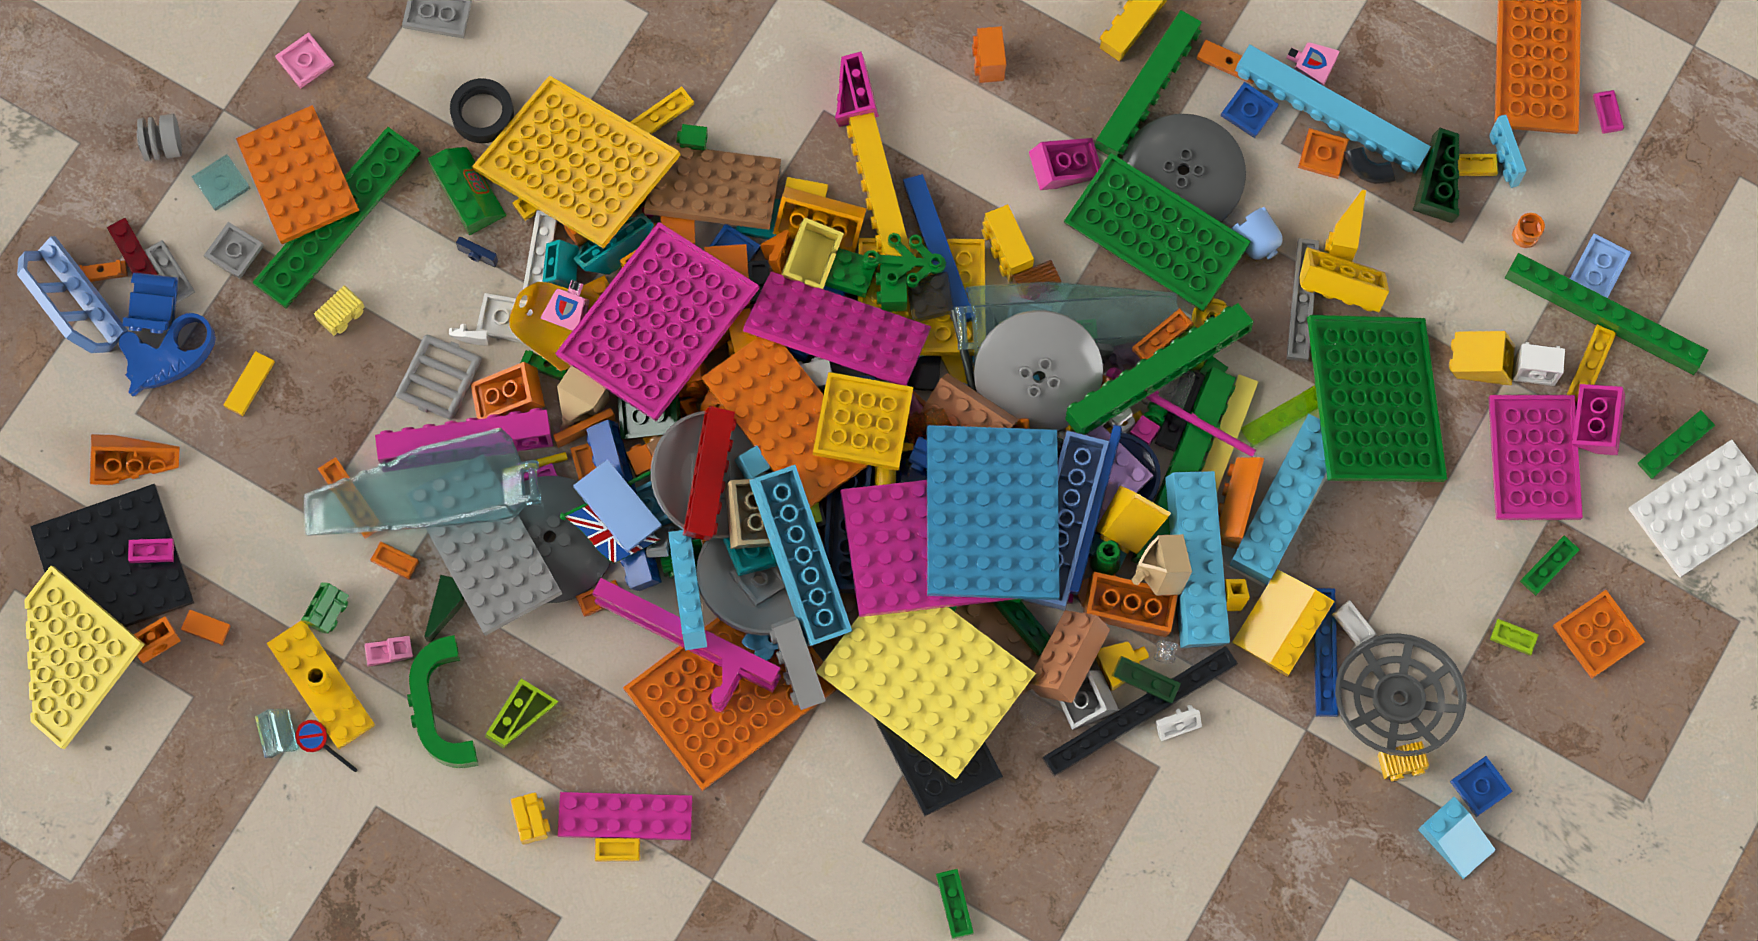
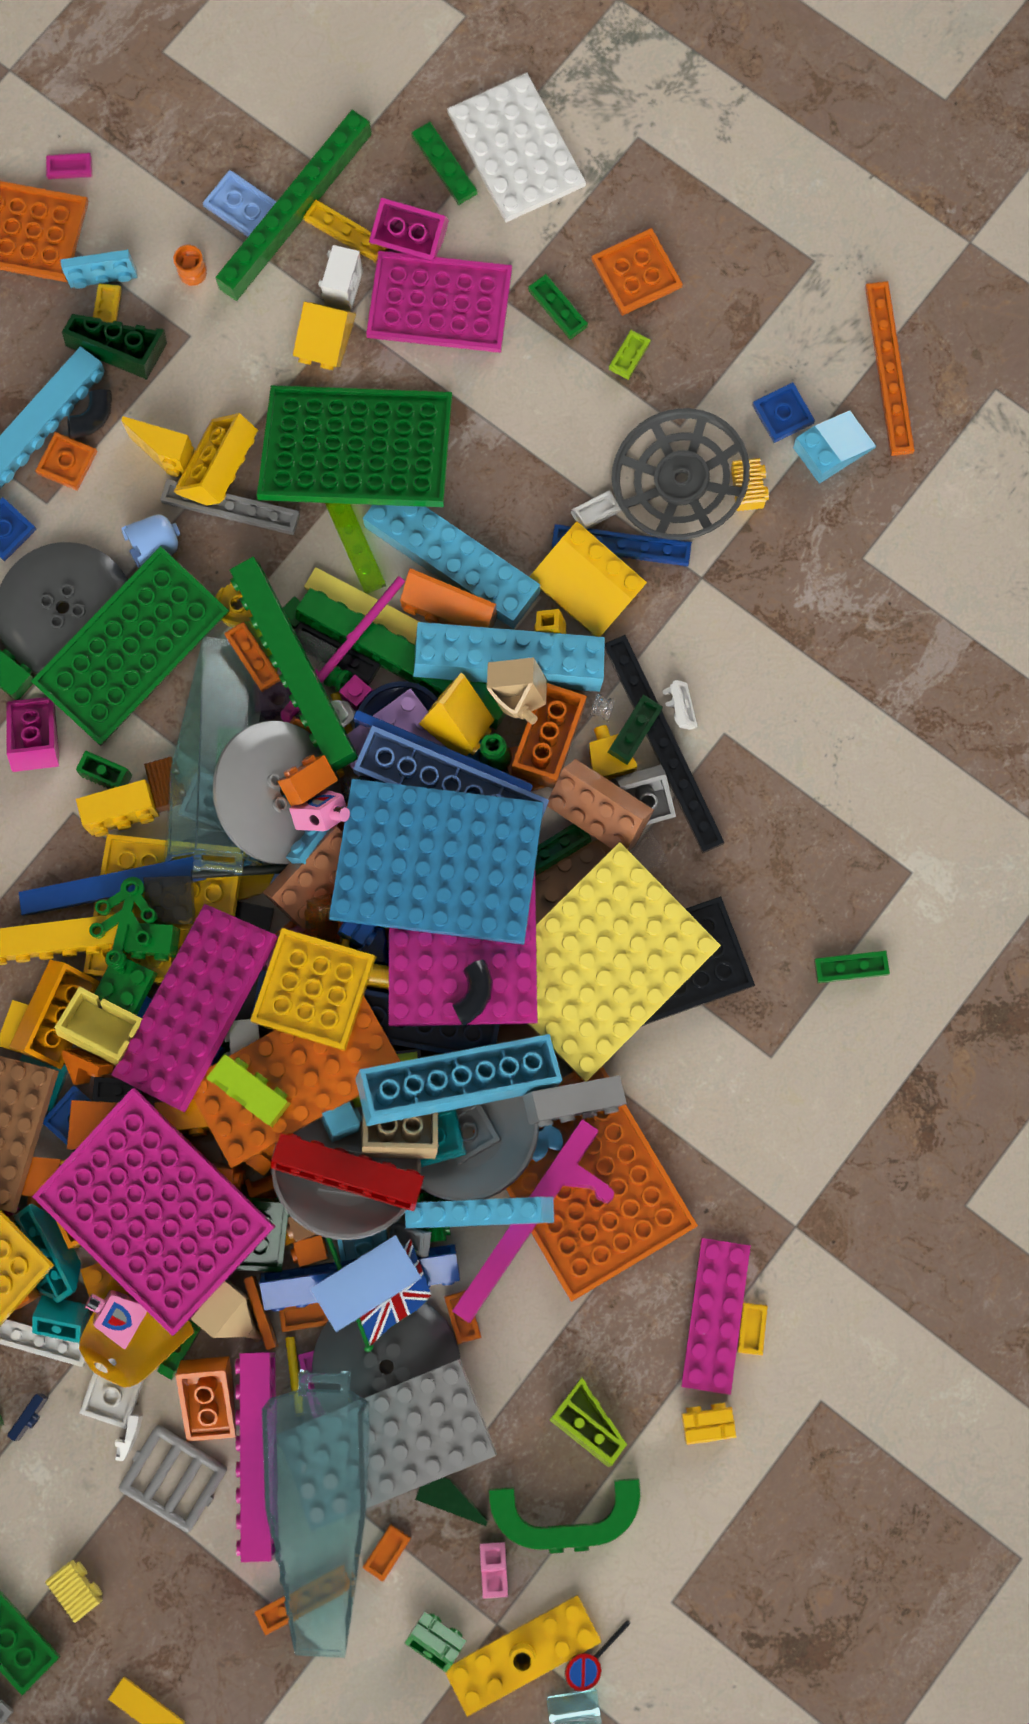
camera: 75 degrees left, 5 degrees up
(768, 379) = (249, 1089): none -> lime wedge
(875, 557) = (478, 992): none -> black cylinder
(992, 401) = (304, 847): none -> medium azure plate
(1024, 407) = (320, 812): none -> bright pink torso
(1039, 226) = (103, 771): none -> green brick
(1050, 392) = (307, 780): none -> orange brick
(1545, 883) = (889, 368): none -> orange tile

